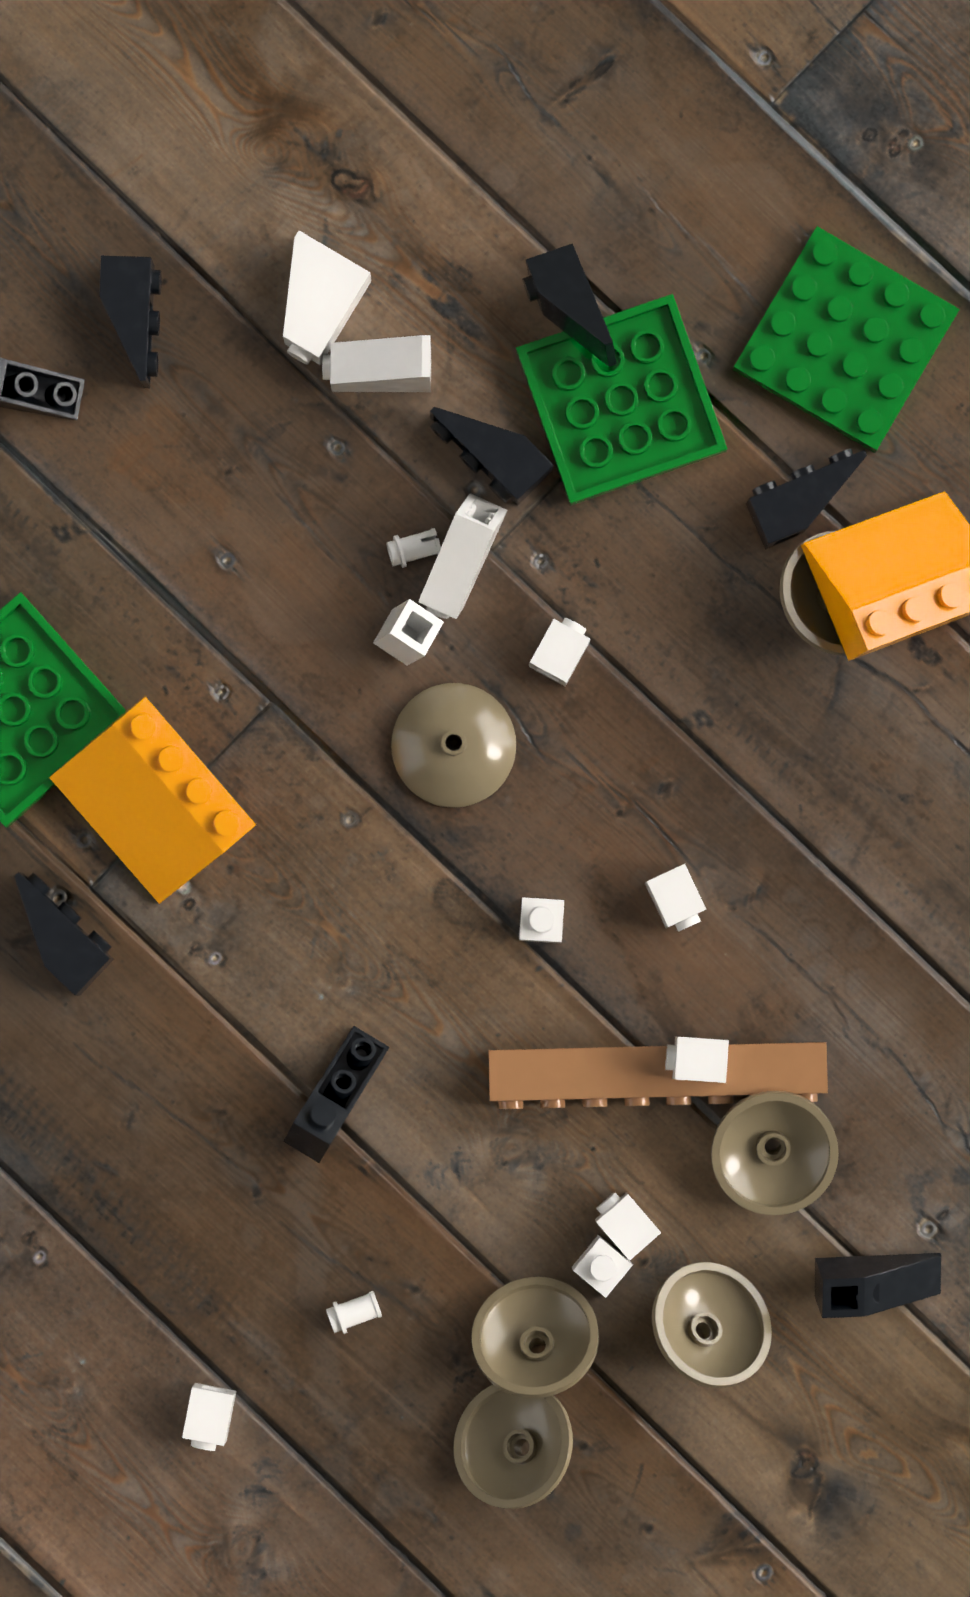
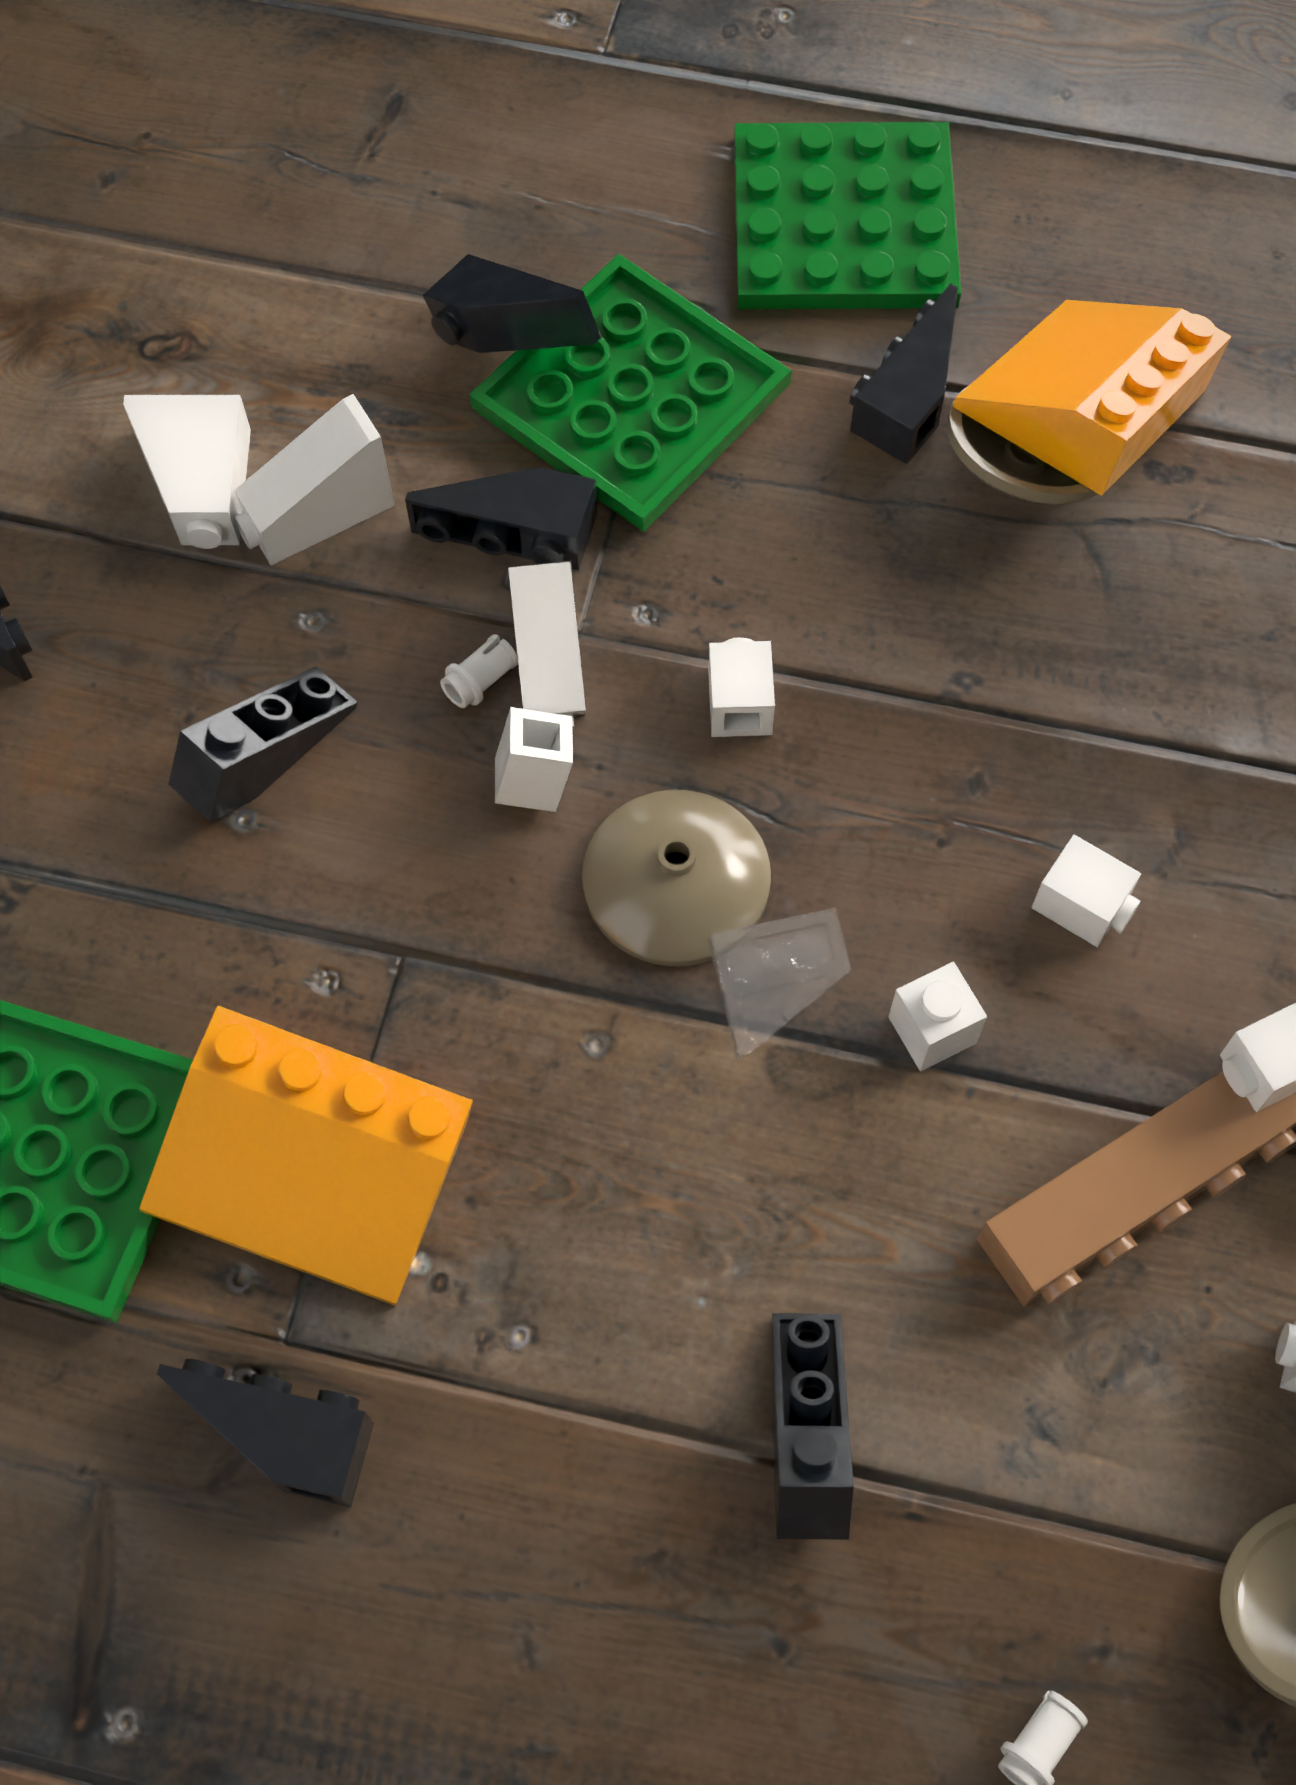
camera: 25 degrees left, 20 degrees down
(261, 519) = (253, 743): none -> black slope
(471, 840) = (776, 972): none -> clear wing

